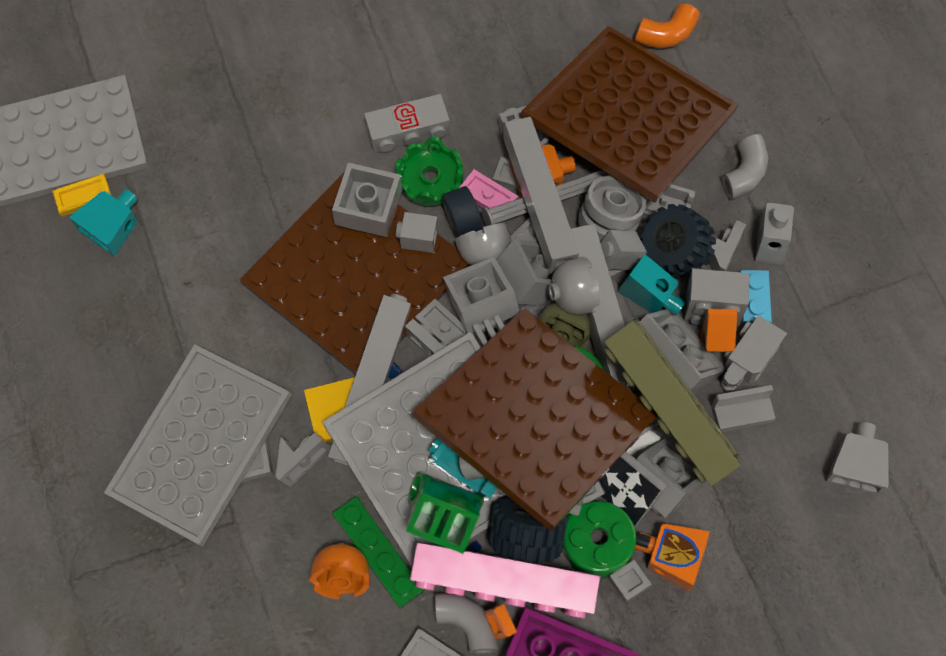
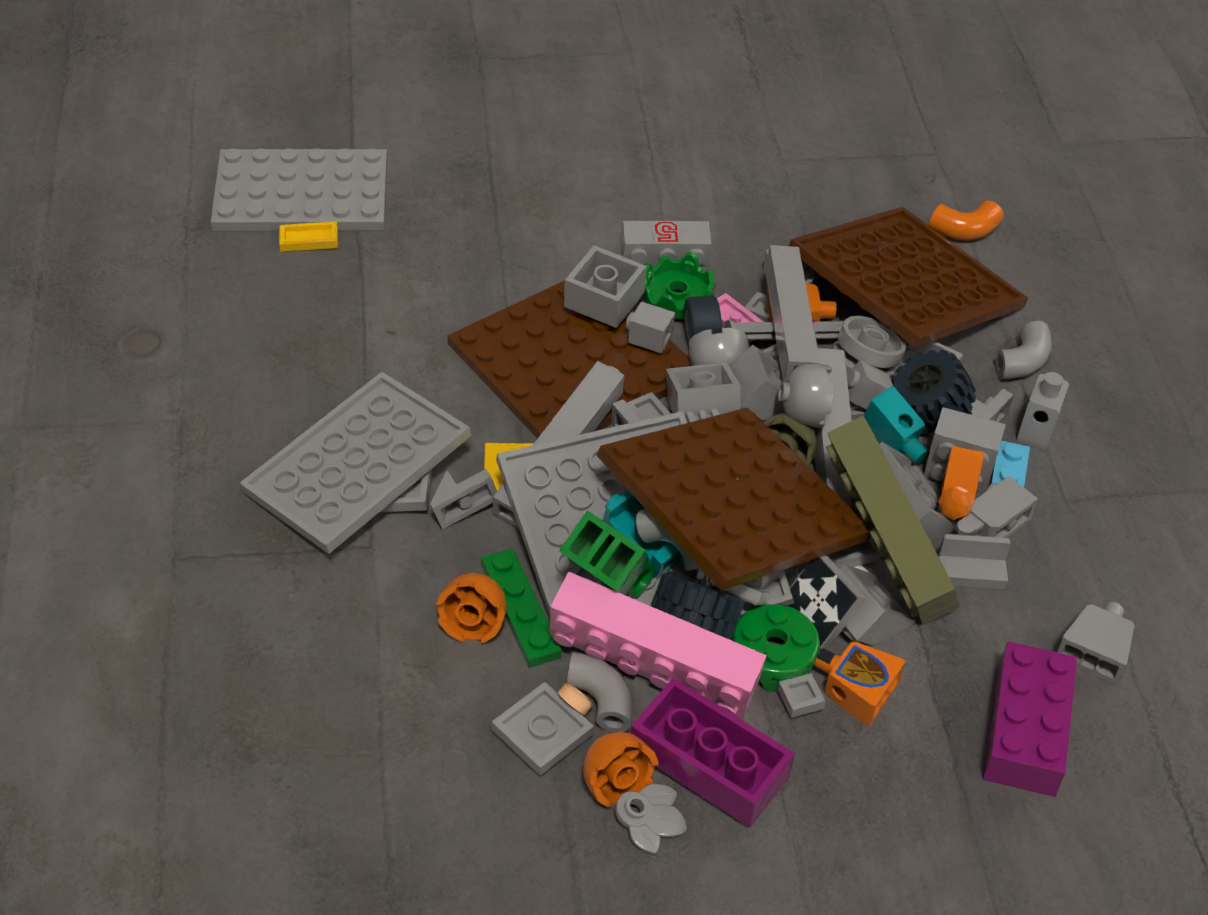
camera: 10 degrees right, 20 degrees down
(107, 220) = (325, 258): teal torso -> none
(447, 637) = (575, 698): none -> light nougat tile
(500, 622) = (640, 686): orange tile -> none
(720, 358) = (955, 502): none -> orange tile
(819, 555) = (1031, 719): none -> magenta brick

